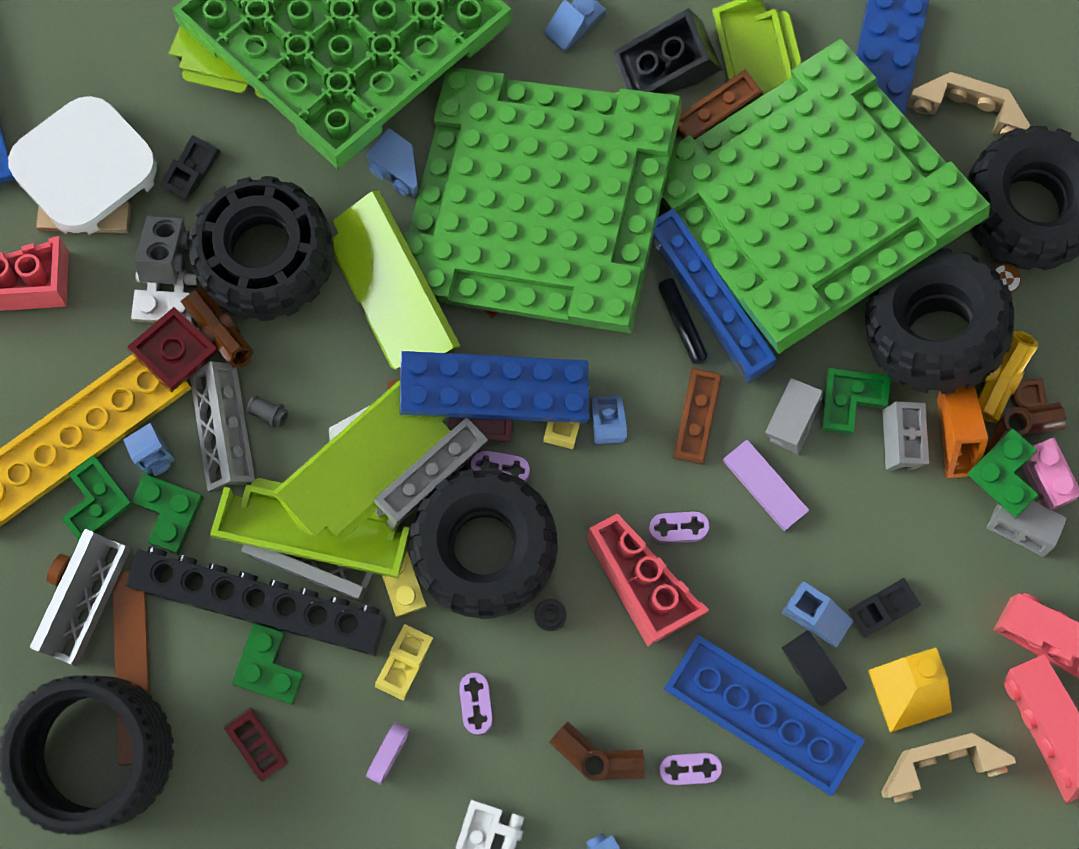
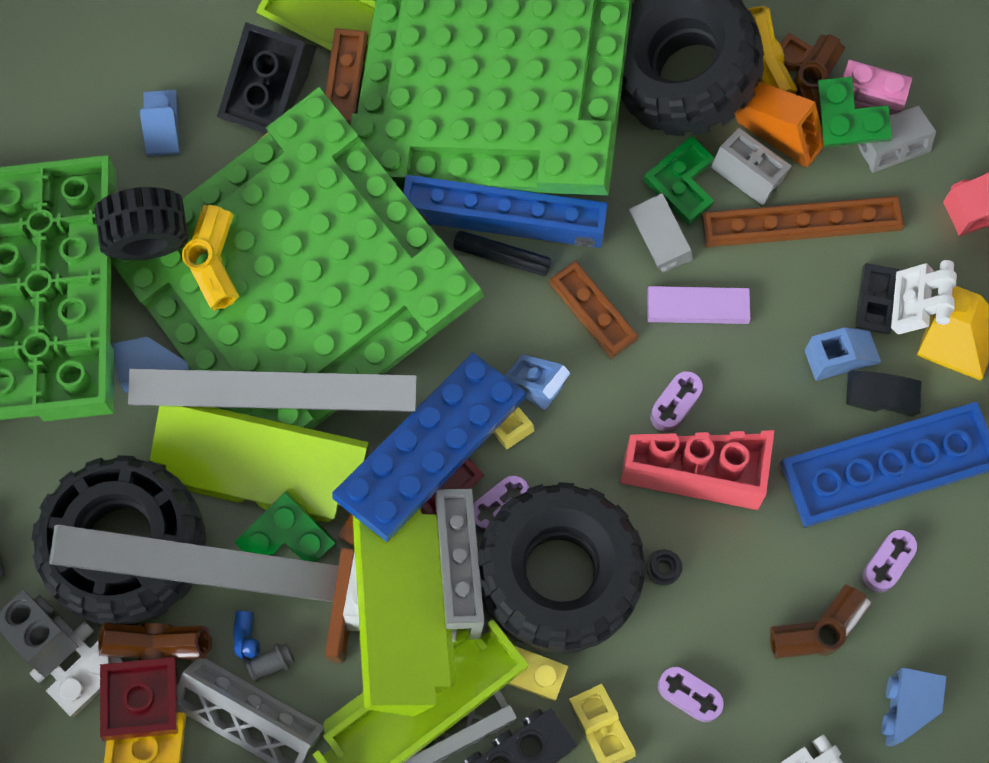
camera: 55 degrees left, 5 degrees down
(264, 384) = (243, 643): none -> blue arm
(279, 307) = (191, 563): none -> light grey tile
(319, 437) = (338, 631): none -> dark orange tile
(365, 343) = (288, 524): none -> green plate
(440, 255) = (272, 390): none -> light grey tile
(475, 70) = (141, 223): none -> black tyre
(485, 145) = (211, 275): none -> yellow piece
(899, 508) = (802, 221): none -> dark orange tile
(903, 631) = (913, 296): none -> white plate

